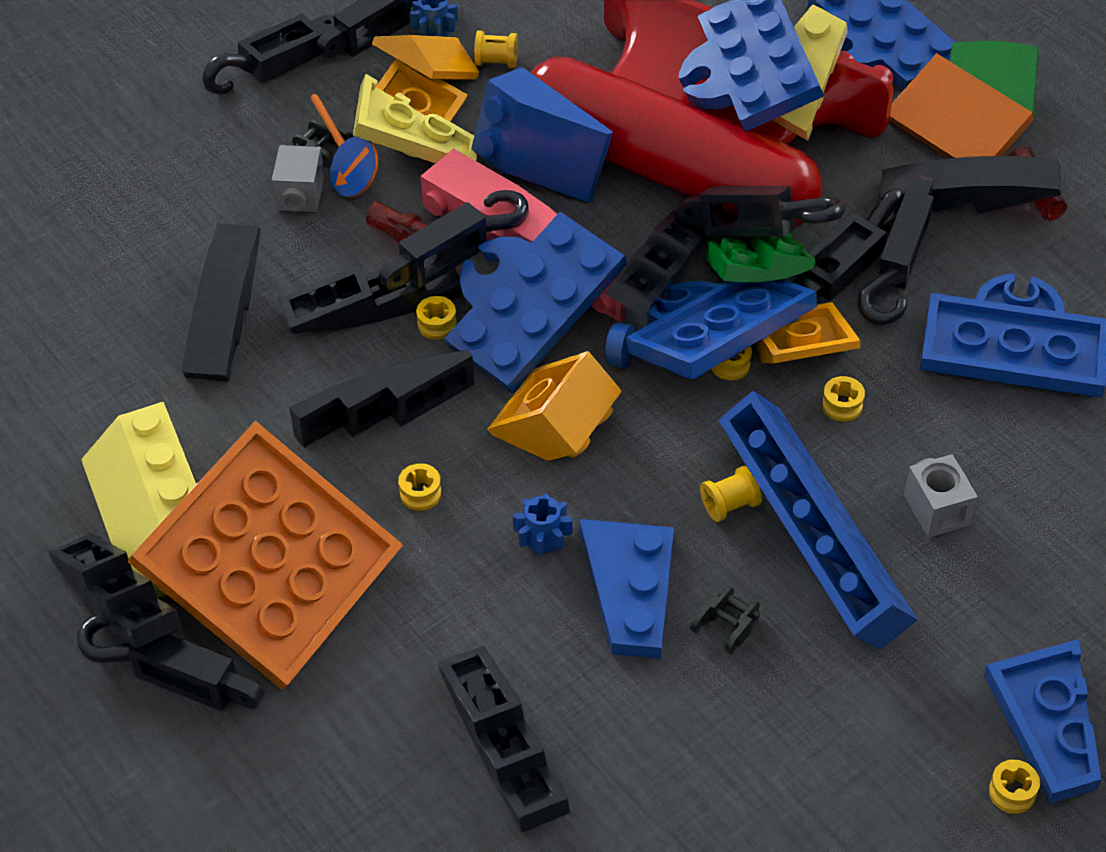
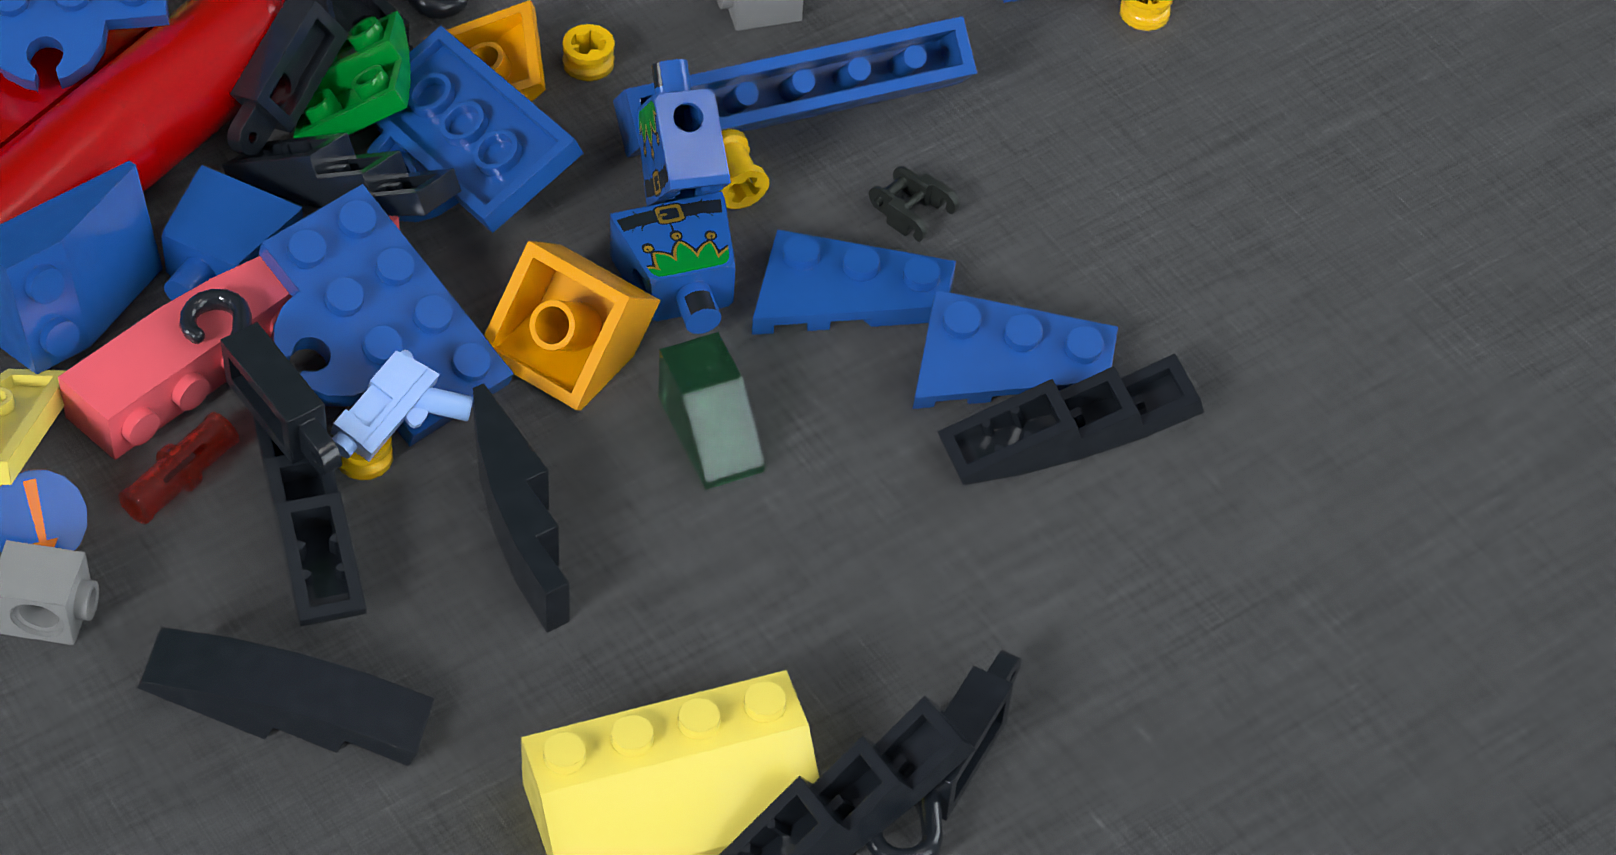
camera: 90 degrees left, 0 degrees up
(266, 554) = (809, 619): orange plate -> none
(423, 499) = (684, 494): yellow bush -> none
(452, 310) = (395, 394): none -> light blue piece
(480, 496) = (710, 410): none -> slope
(542, 524) = (764, 350): blue gear -> none
(569, 689) = (1004, 349): none -> blue wing
(608, 210) = (219, 228): none -> blue torso
(616, 345) = (467, 246): blue tile -> none
(627, 468) = (679, 256): none -> blue torso
(703, 428) = (675, 160): none -> torso

